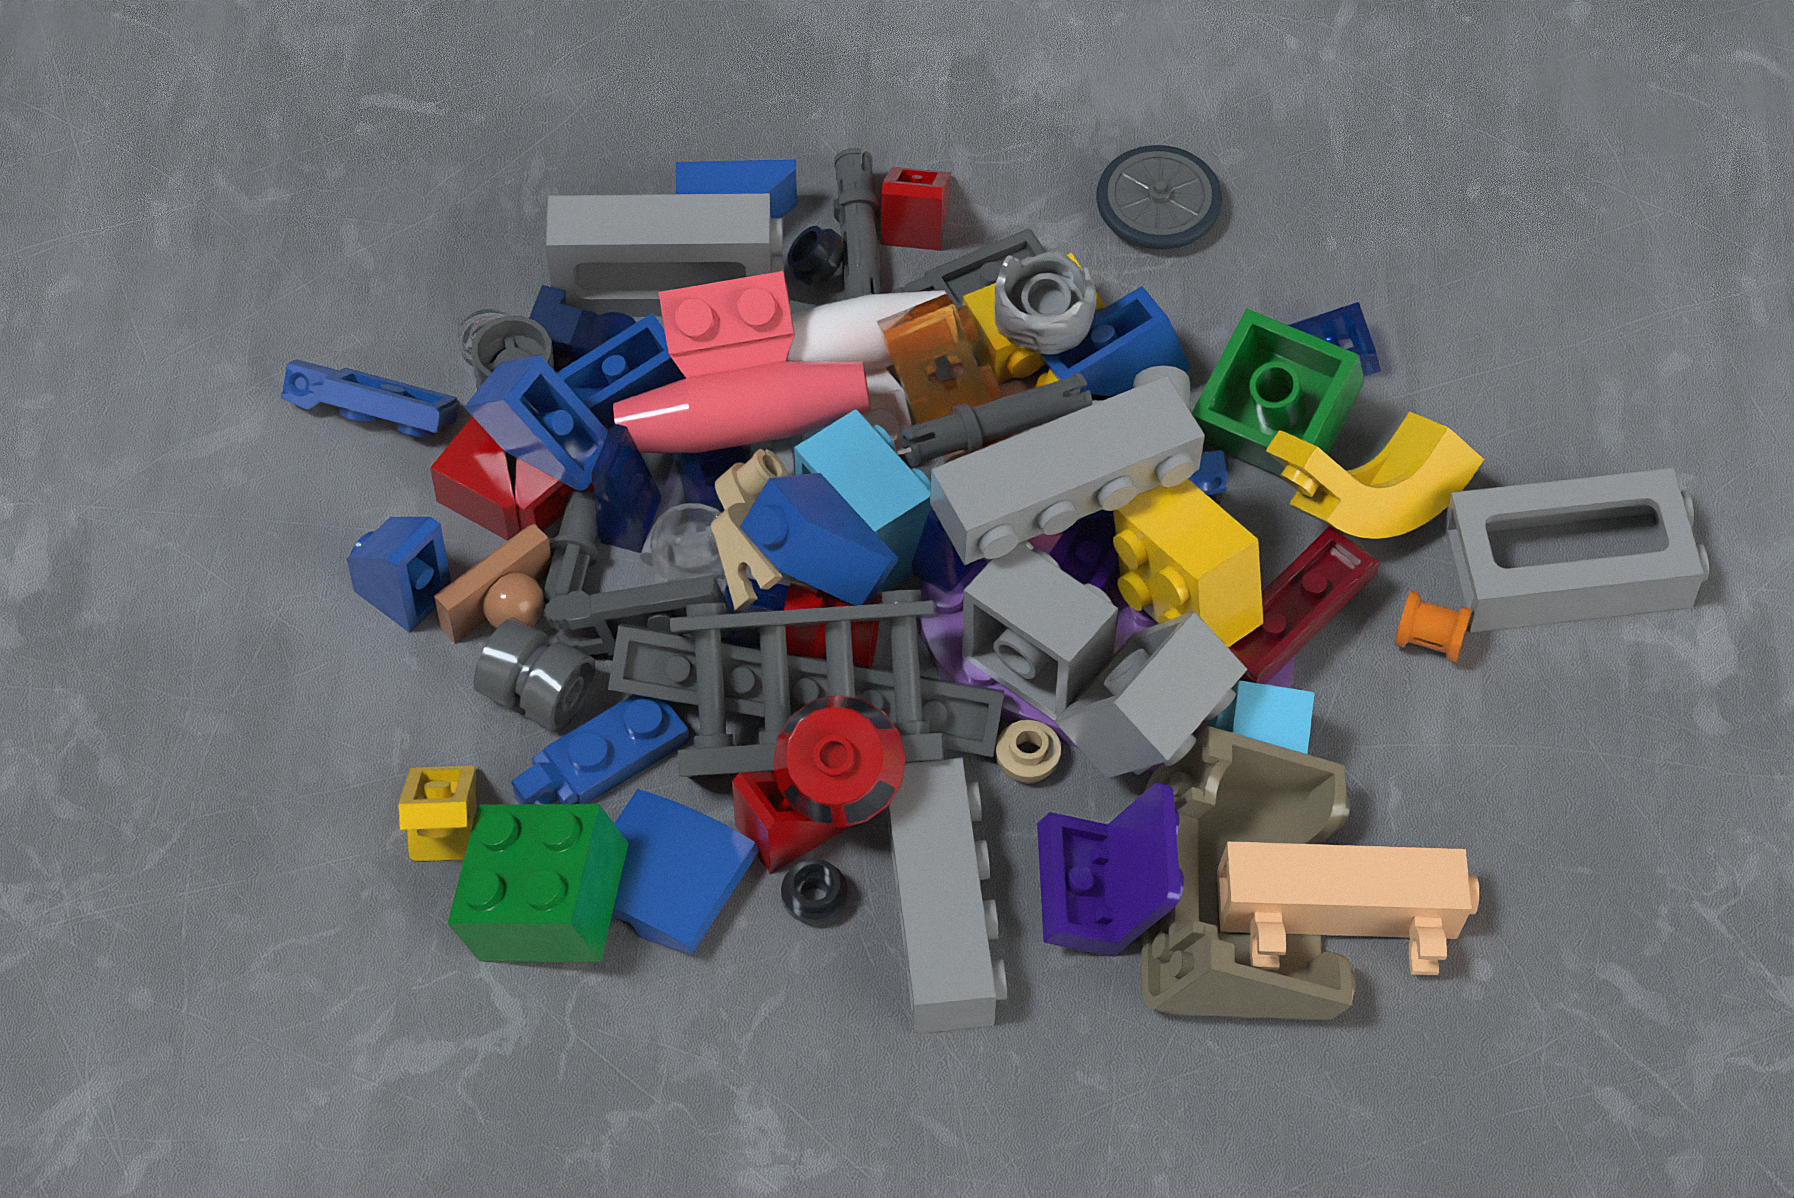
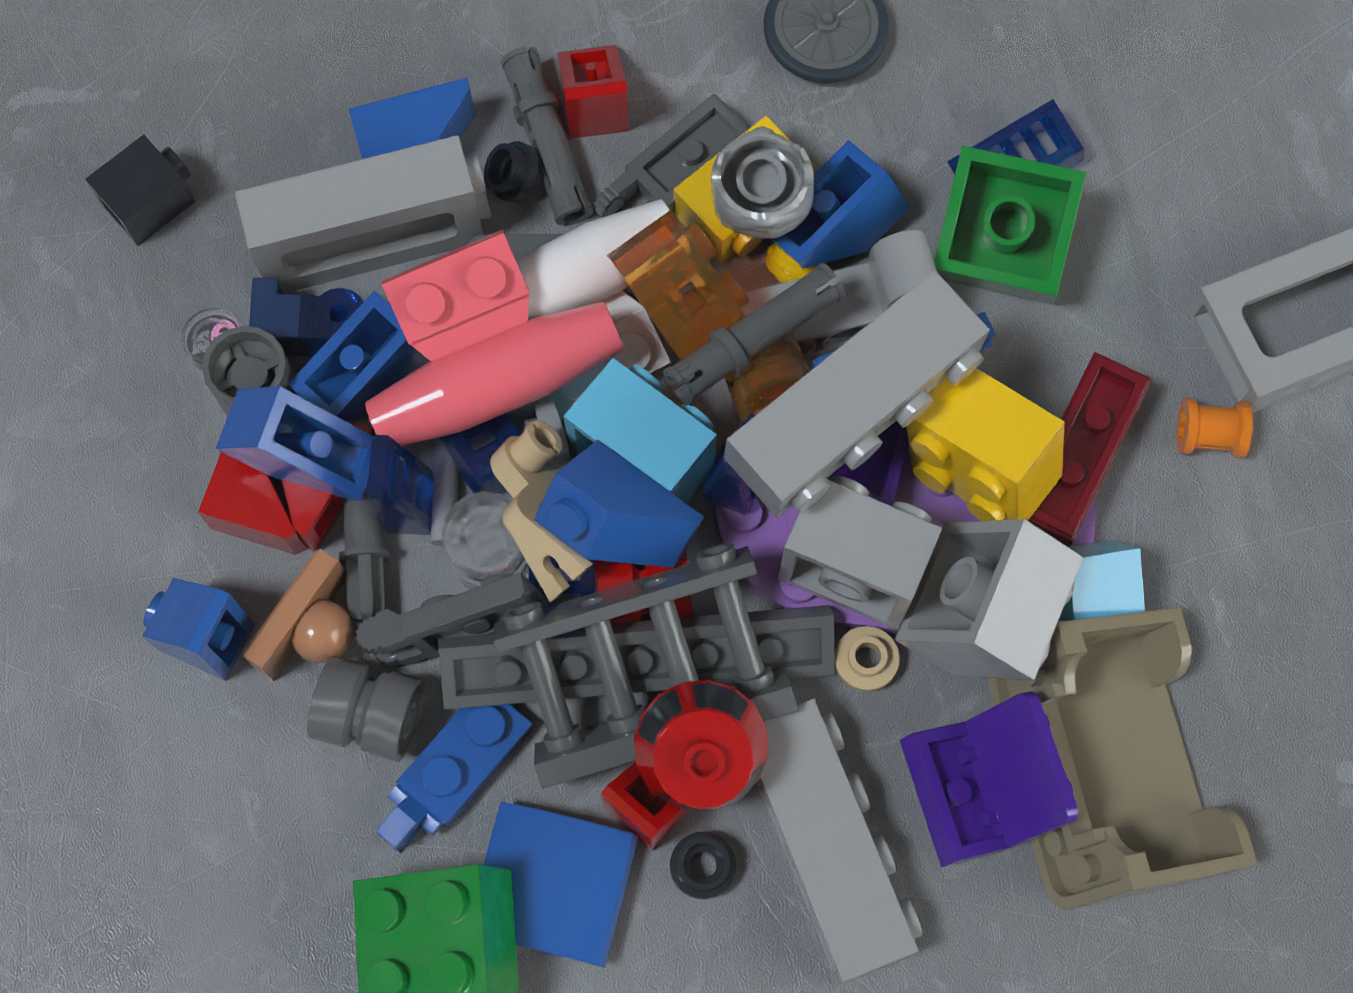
camera: 15 degrees left, 15 degrees up
(369, 396) = (113, 438): blue hinge -> none
(438, 811) = (310, 874): yellow slope -> none
(462, 193) = (142, 188): none -> black brick
(1345, 893) = (1212, 738): light nougat brick -> none
(1389, 494) = (1139, 295): yellow arch -> none

